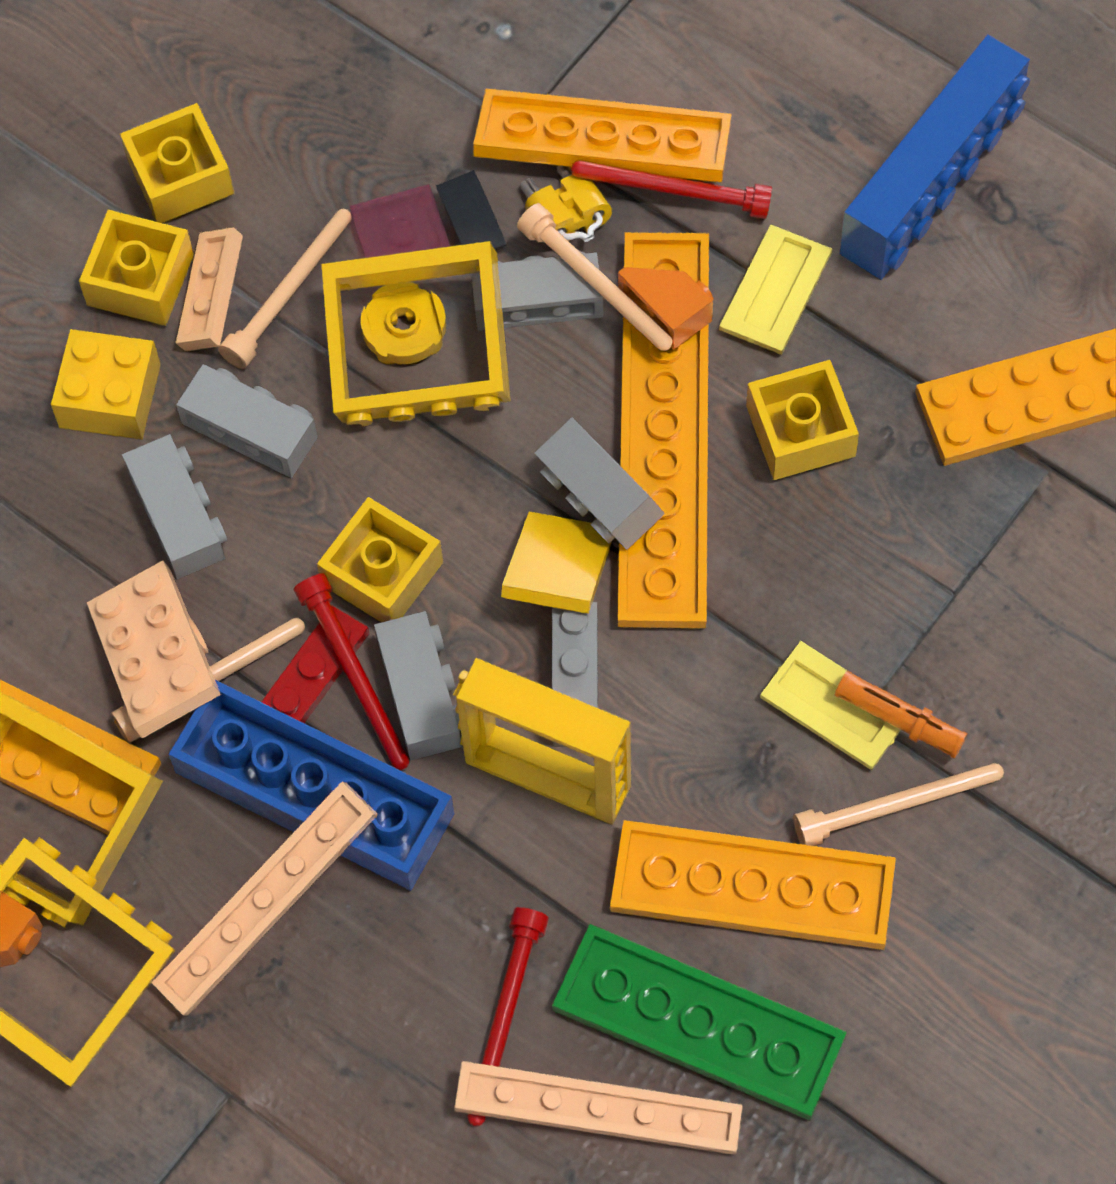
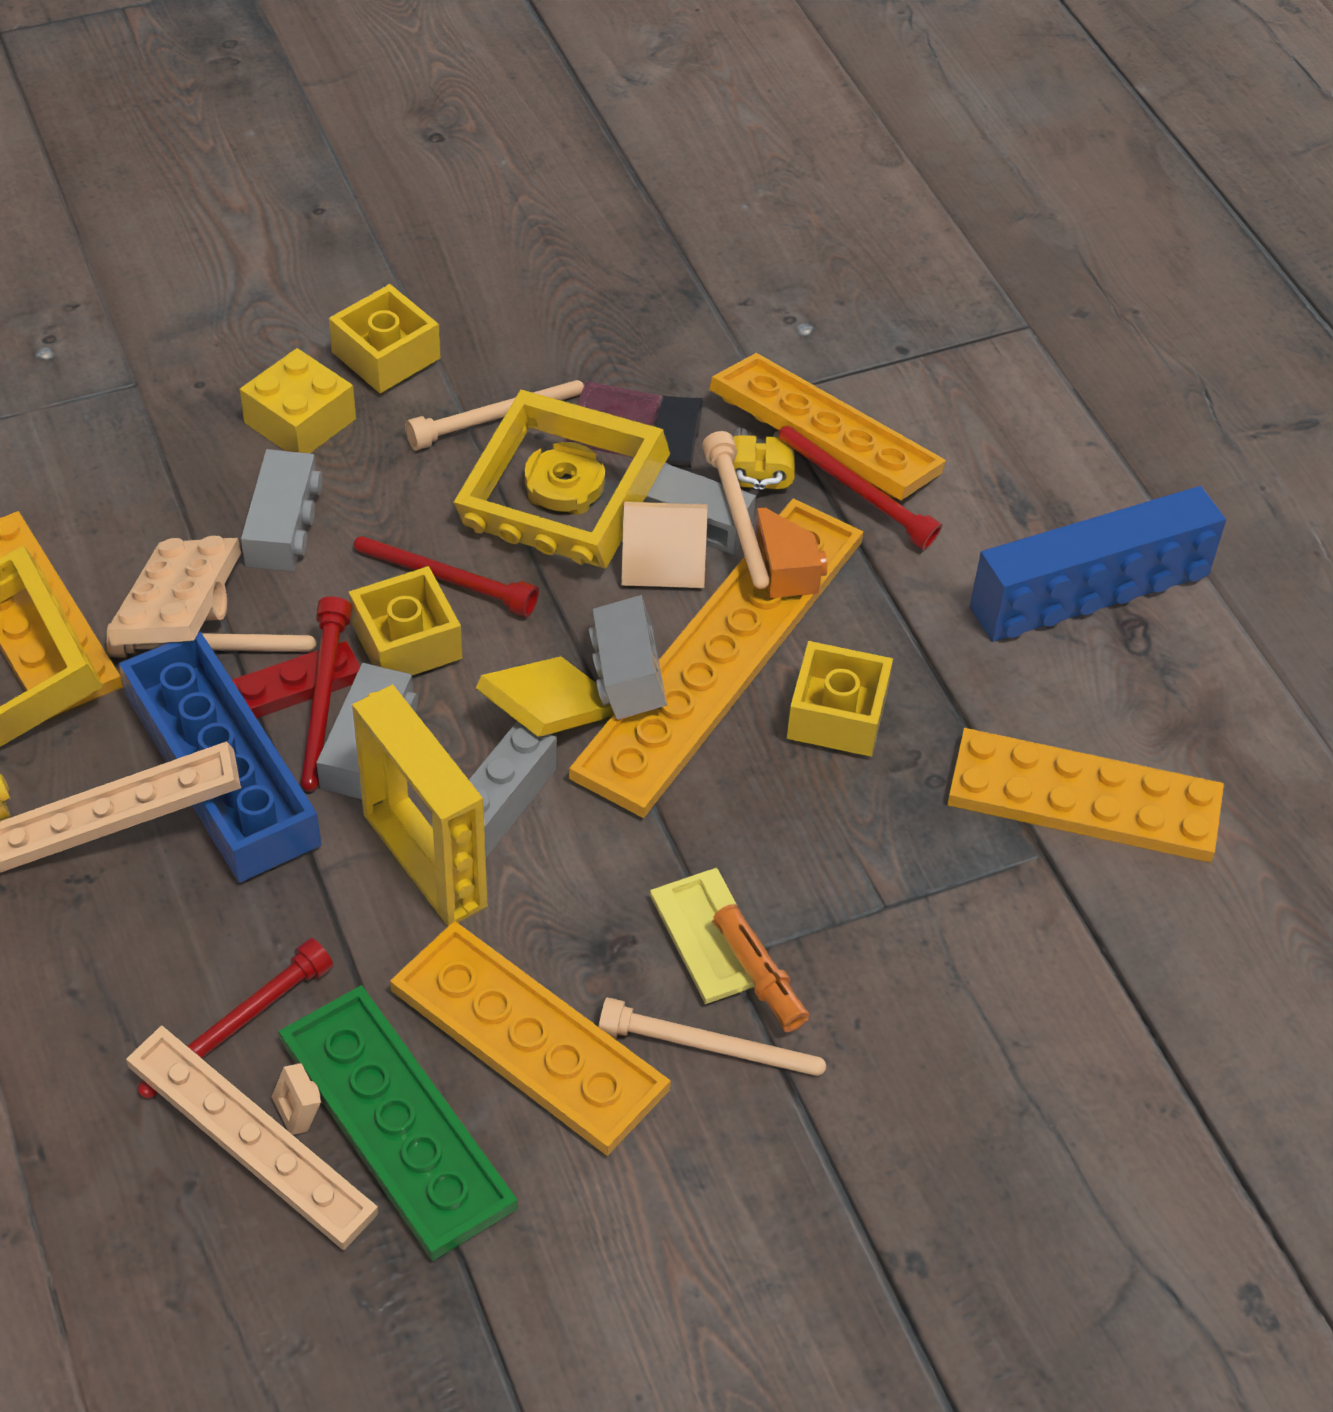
camera: 25 degrees right, 15 degrees down
(177, 163) = (472, 287): yellow brick -> none
(209, 289) = (431, 382): light nougat plate -> none
(247, 420) = (387, 481): light grey brick -> none
(449, 473) = (519, 596): none -> red piece
(551, 350) = (664, 544): none -> light nougat tile
(609, 1054) = (296, 1098): none -> light nougat plate
(775, 289) = (892, 601): light yellow piece -> none

